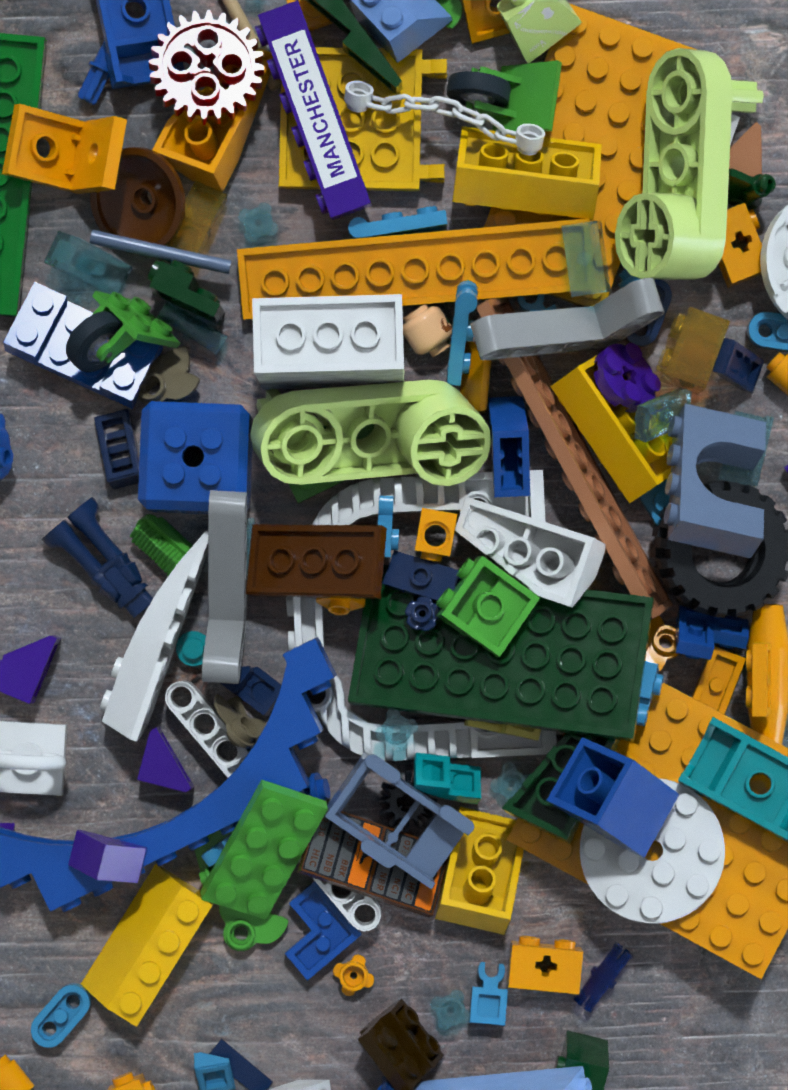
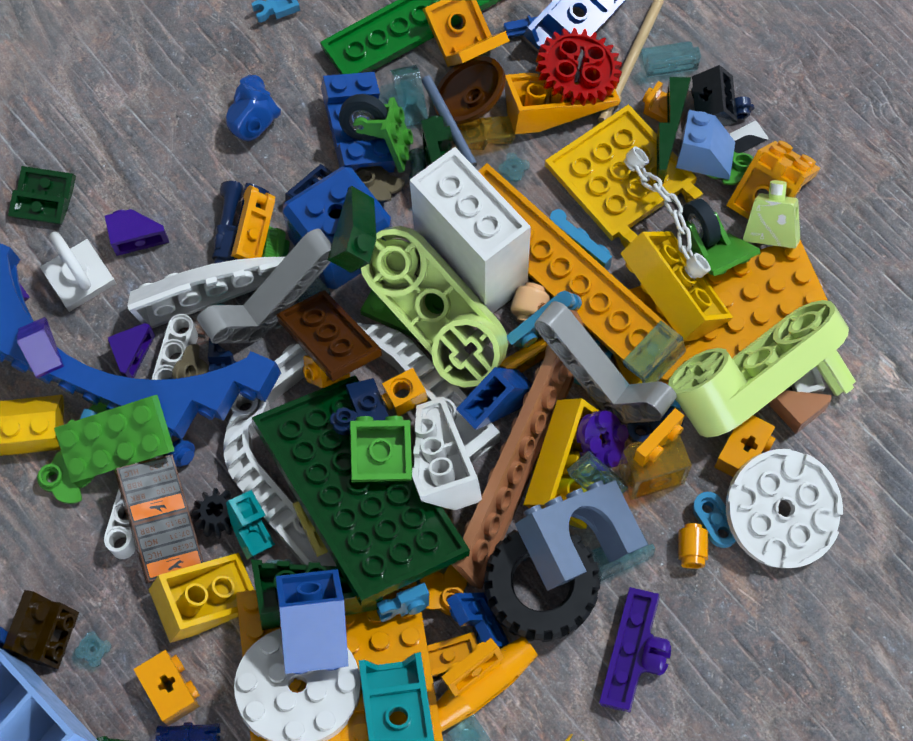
camera: 50 degrees right, 20 degrees down
(125, 543) = (253, 224): none -> light orange plate
(243, 457) = (355, 232): none -> dark green slope
(314, 110) = (604, 141): brick -> none
(328, 933) = (85, 531): blue plate -> none
(349, 984) = (64, 569): light orange plate -> none
(385, 518) = (380, 367): dark azure plate -> none
(400, 739) = (262, 470): clear light blue plate -> none
(432, 845) = (193, 547): sand blue piece -> none
(488, 1002) = (116, 668): dark azure plate -> none
(689, 347) = (652, 446): none -> light orange plate
(738, 365) = (669, 502): dark blue plate -> none
(749, 189) = (781, 415): dark green arm -> none

